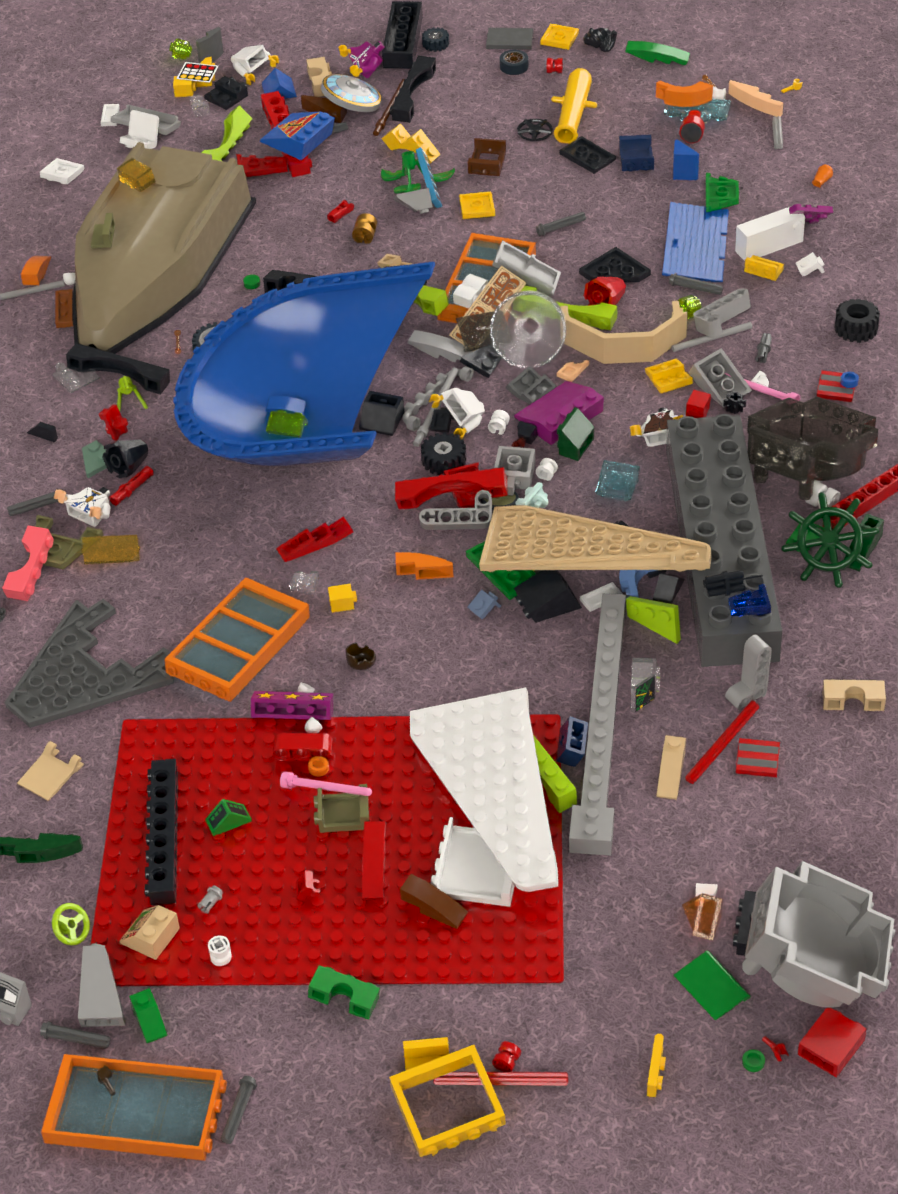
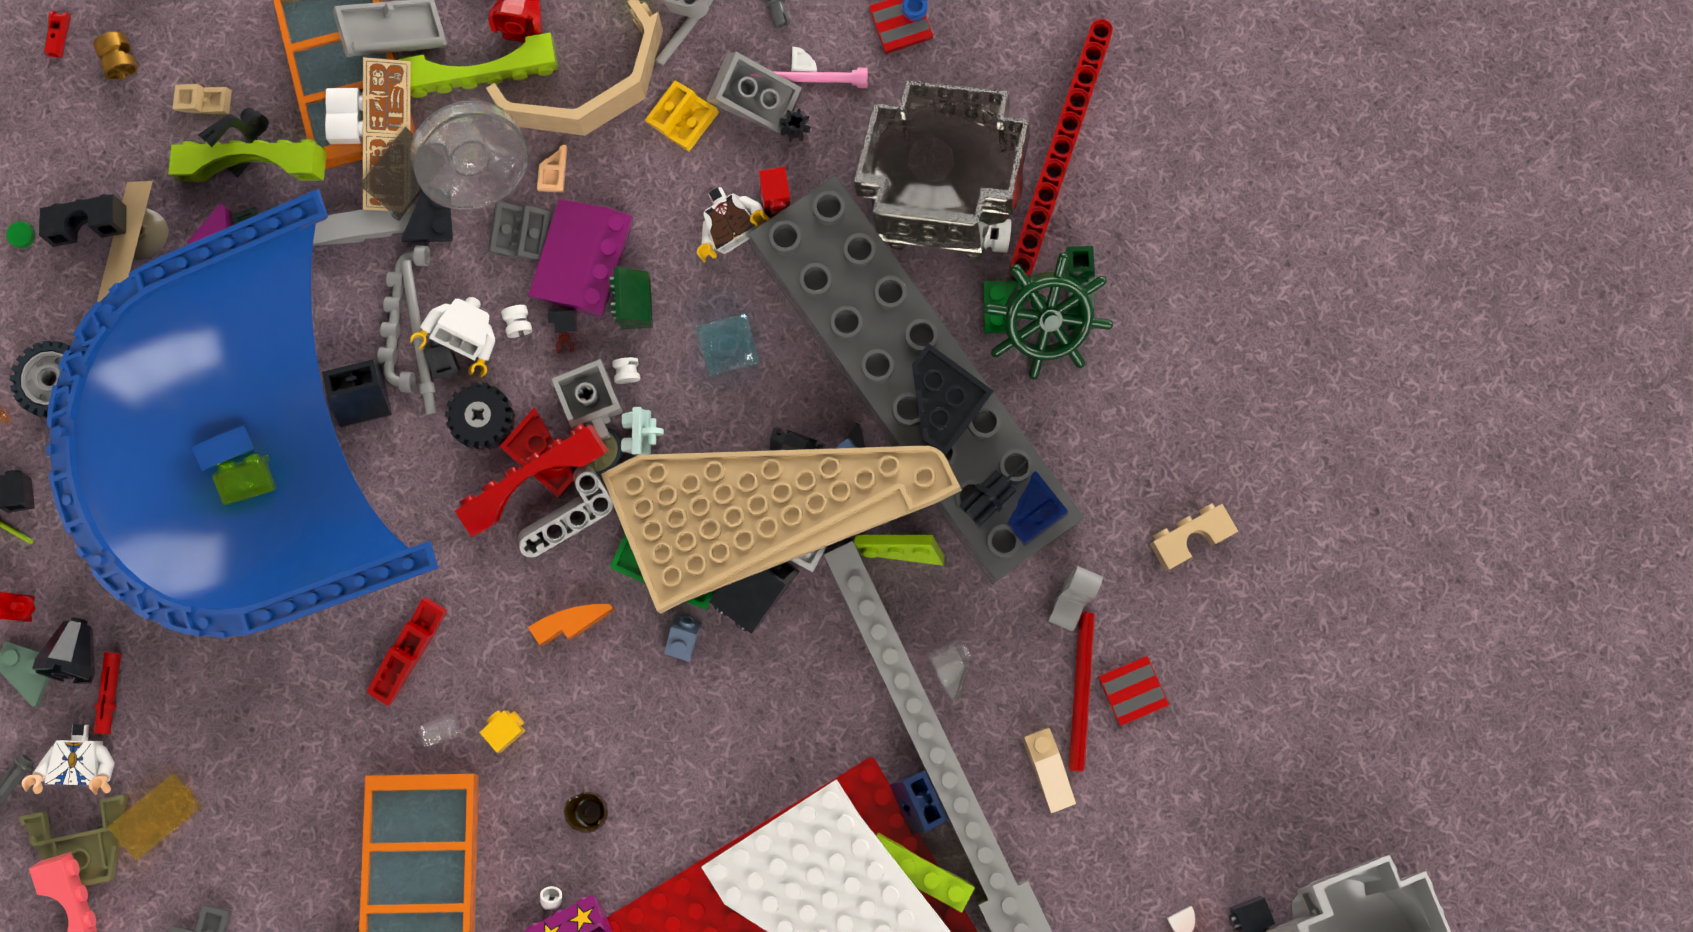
camera: 35 degrees left, 35 degrees up
(732, 528) = (945, 398): none -> black plate

